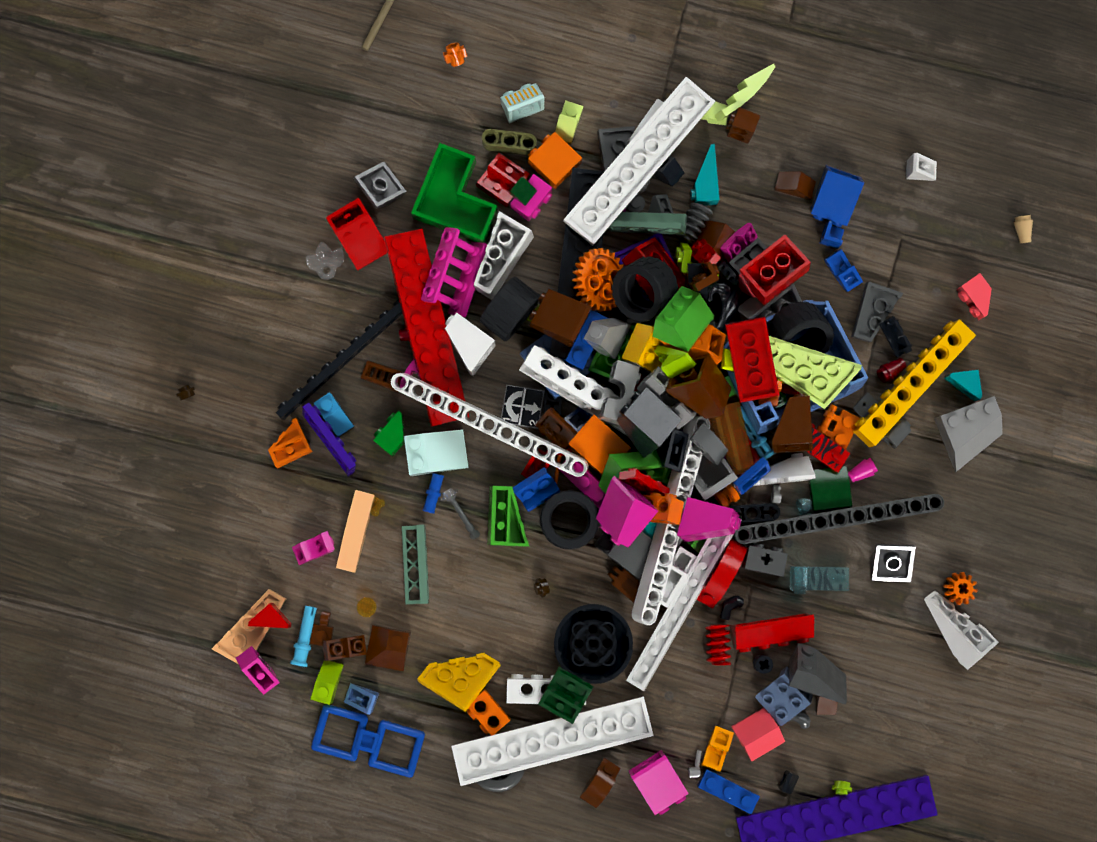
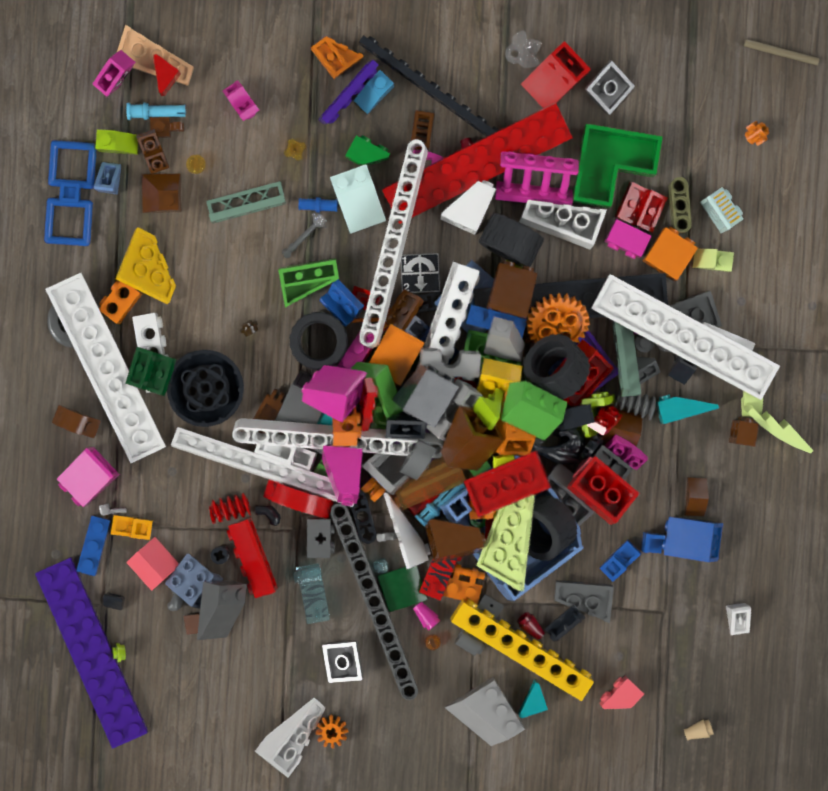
camera: 85 degrees right, 5 degrees up
(355, 531) = (265, 137): light nougat slope -> none
(523, 191) = (630, 229): dark green slope -> none
(704, 279) = (574, 421): reddish brown bracket -> none
(752, 475) = (396, 508): blue tile -> none
(887, 466) = (436, 640): none -> clear orange hinge

